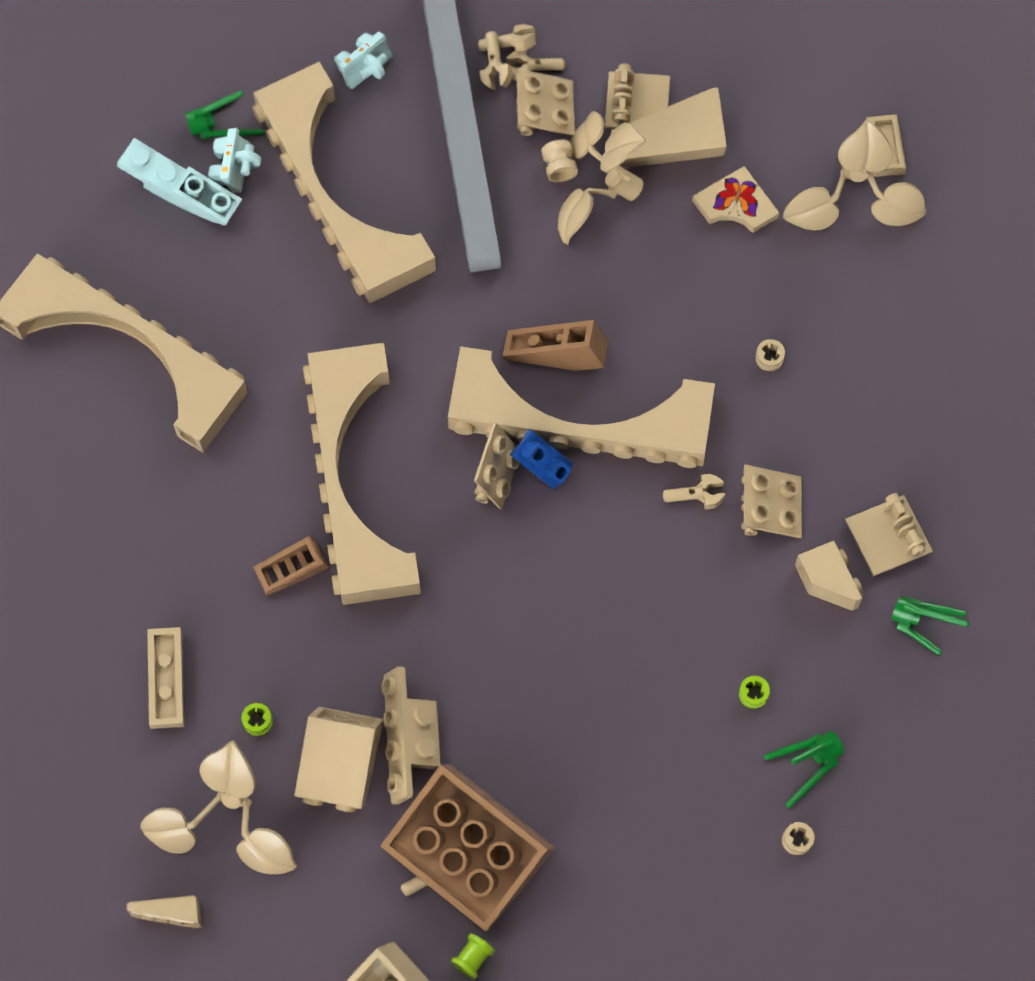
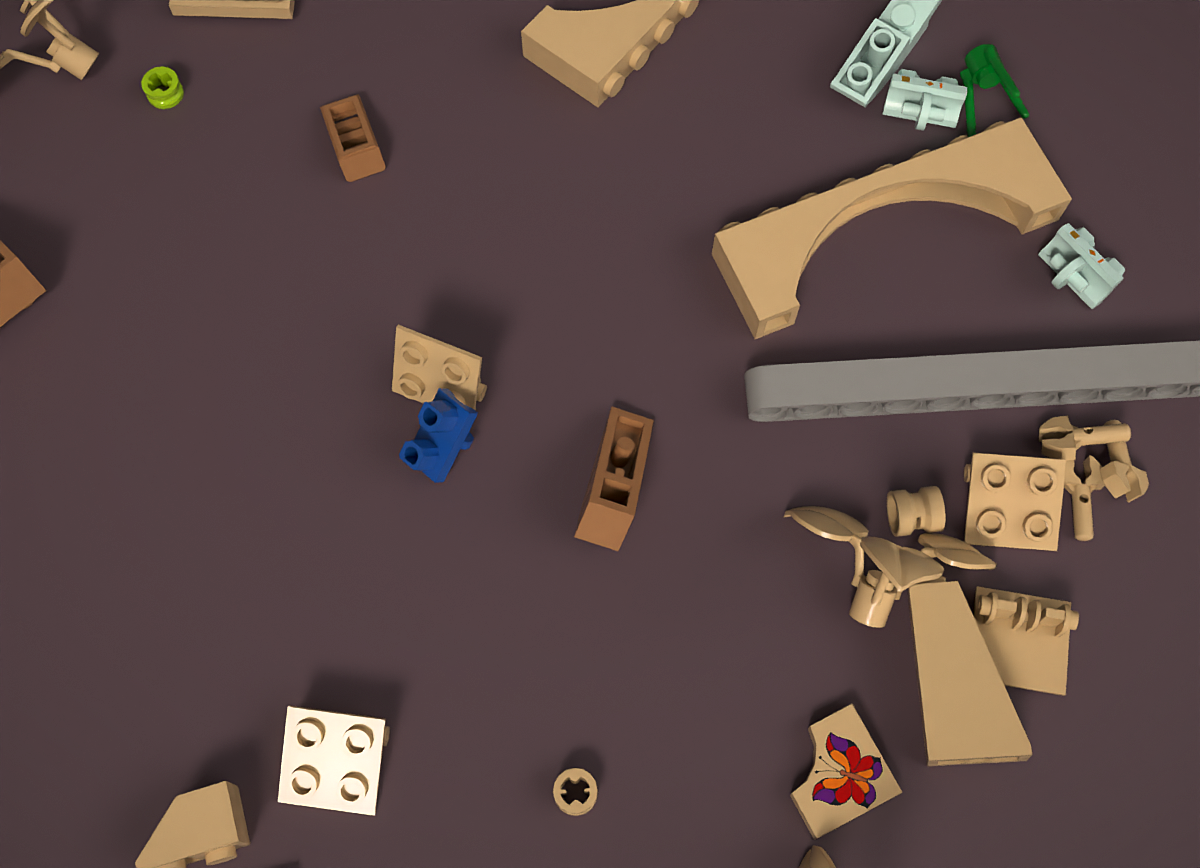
camera: 95 degrees right, 0 degrees up
(338, 758) = (87, 163): tan slope -> none
(365, 563) = (340, 208): tan arch -> none
(410, 735) = (96, 254): tan bracket -> none
(669, 432) = (462, 625): tan arch -> none
(698, 492) = (370, 653): tan bar -> none
(764, 692) = (40, 686): lime bush -> none

